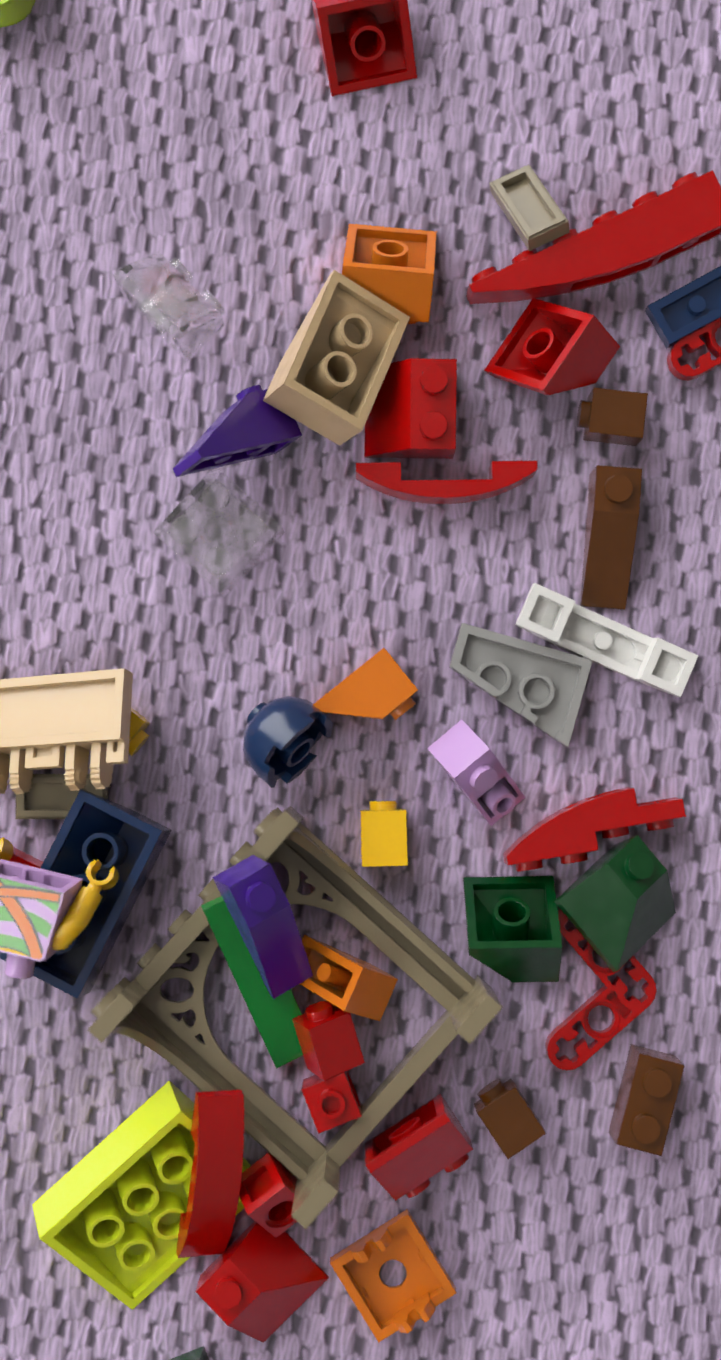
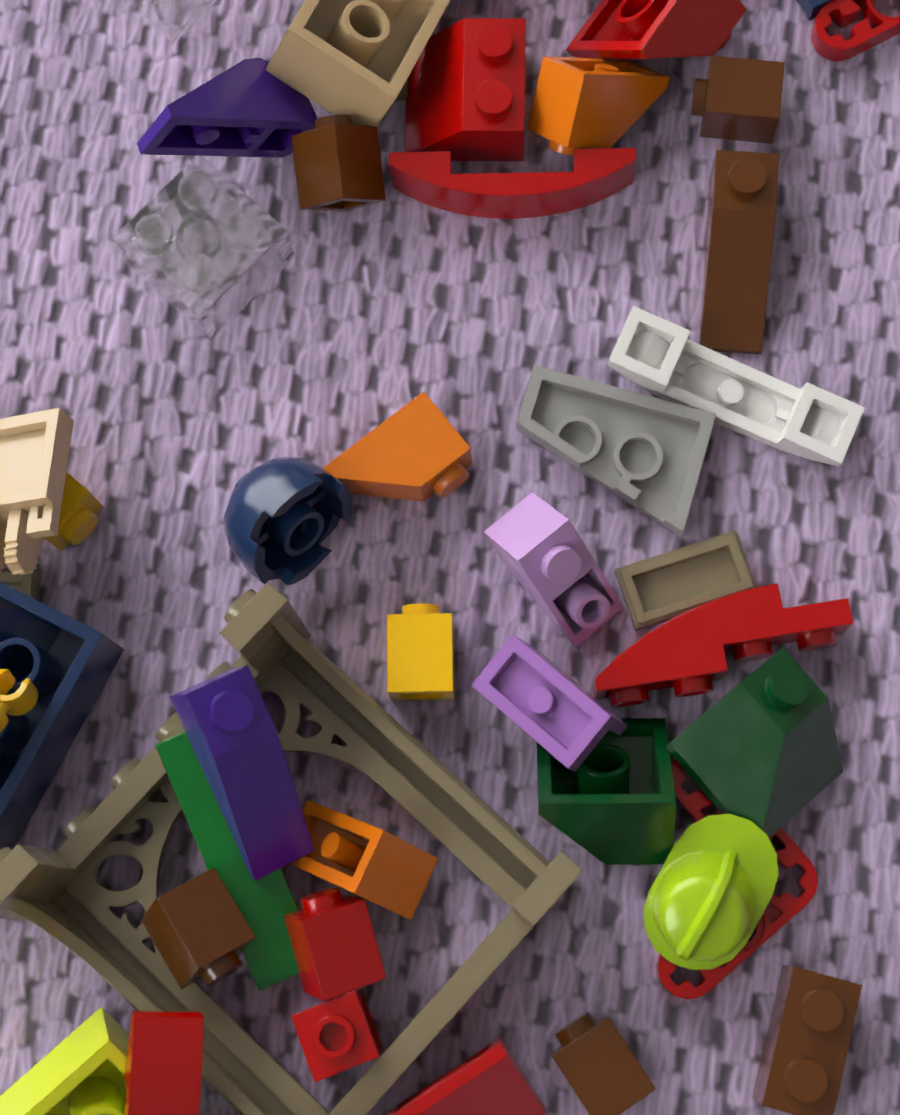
camera: 10 degrees right, 10 degrees down
(236, 1033) = (199, 930): none -> reddish brown brick
(317, 471) = (338, 165): none -> reddish brown brick
(473, 872) = (546, 702): none -> medium lavender panel
(504, 420) = (591, 100): none -> orange slope
(569, 778) = (683, 579): none -> dark tan tile
(584, 1001) = (711, 892): none -> lime piece

